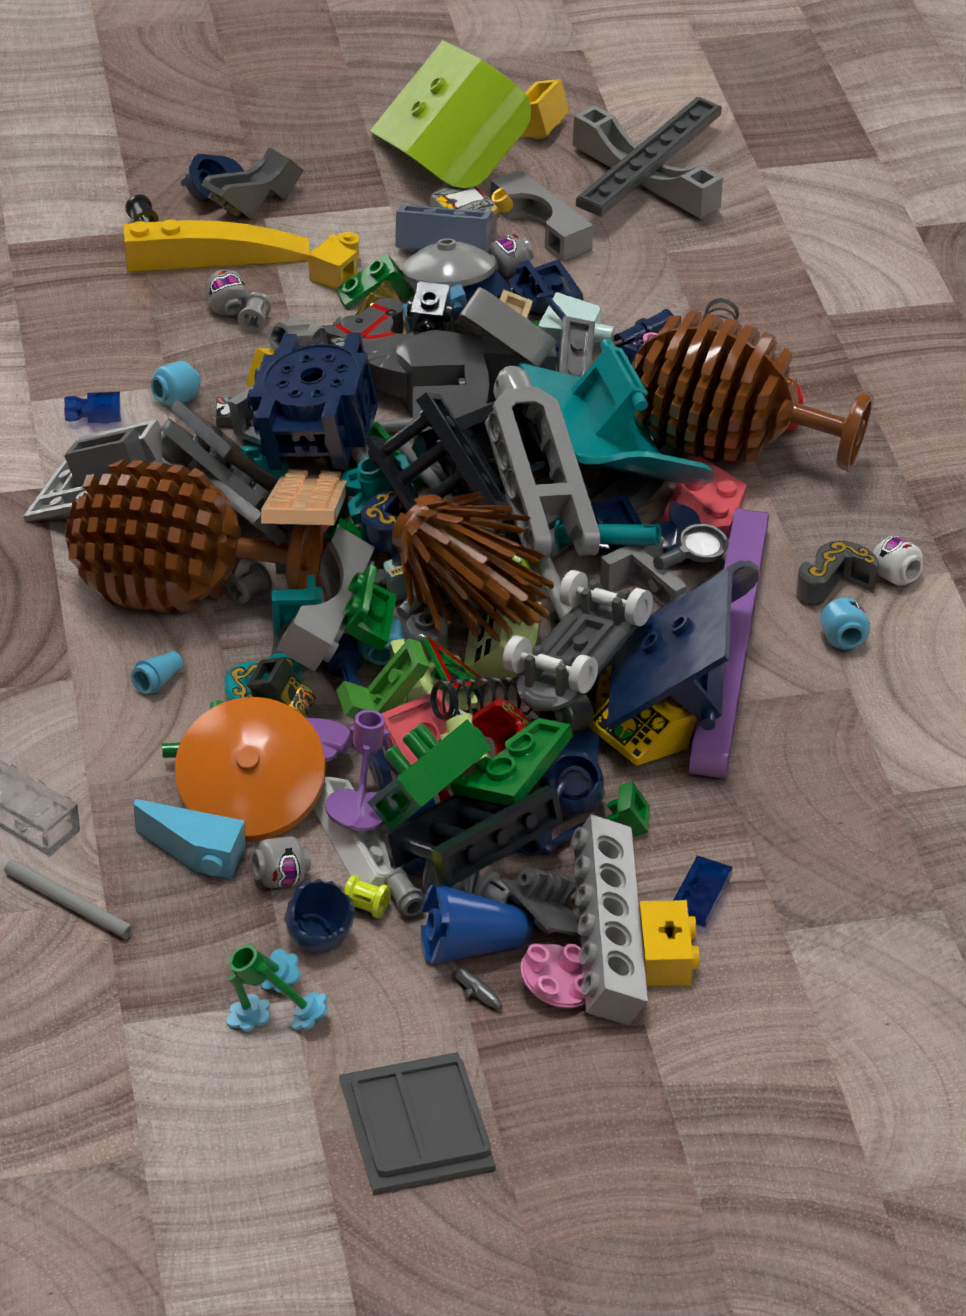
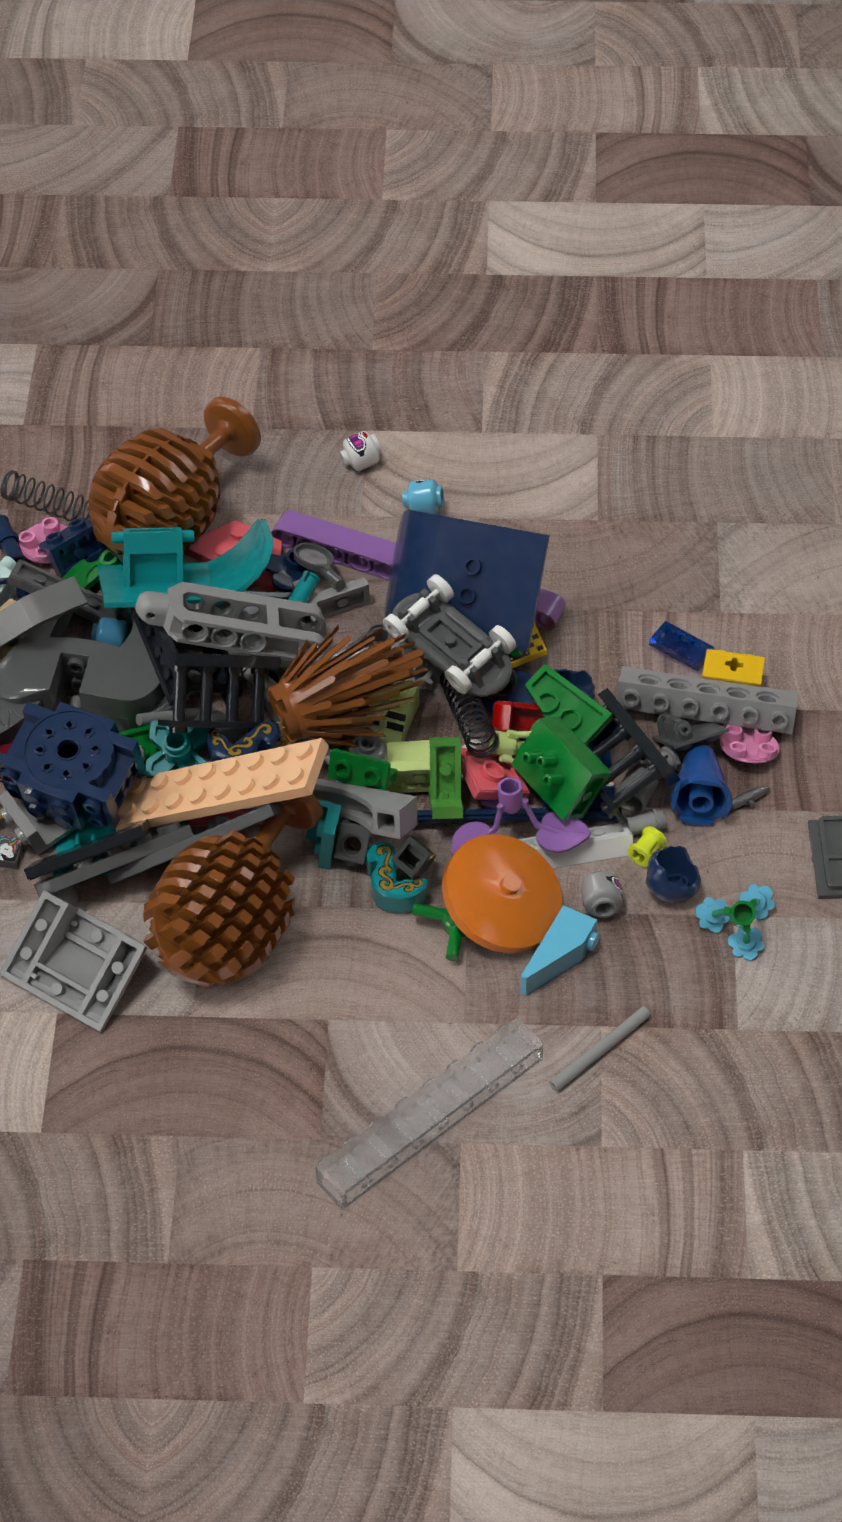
camera: 75 degrees left, 10 degrees up
(97, 453) = (76, 940): dark grey brick -> none
(155, 672) = (351, 952): medium azure cone -> none
(449, 666) = (414, 741): piece -> none
(630, 809) = (593, 666): green tile -> none
(833, 563) = (355, 492): dark grey animal -> none

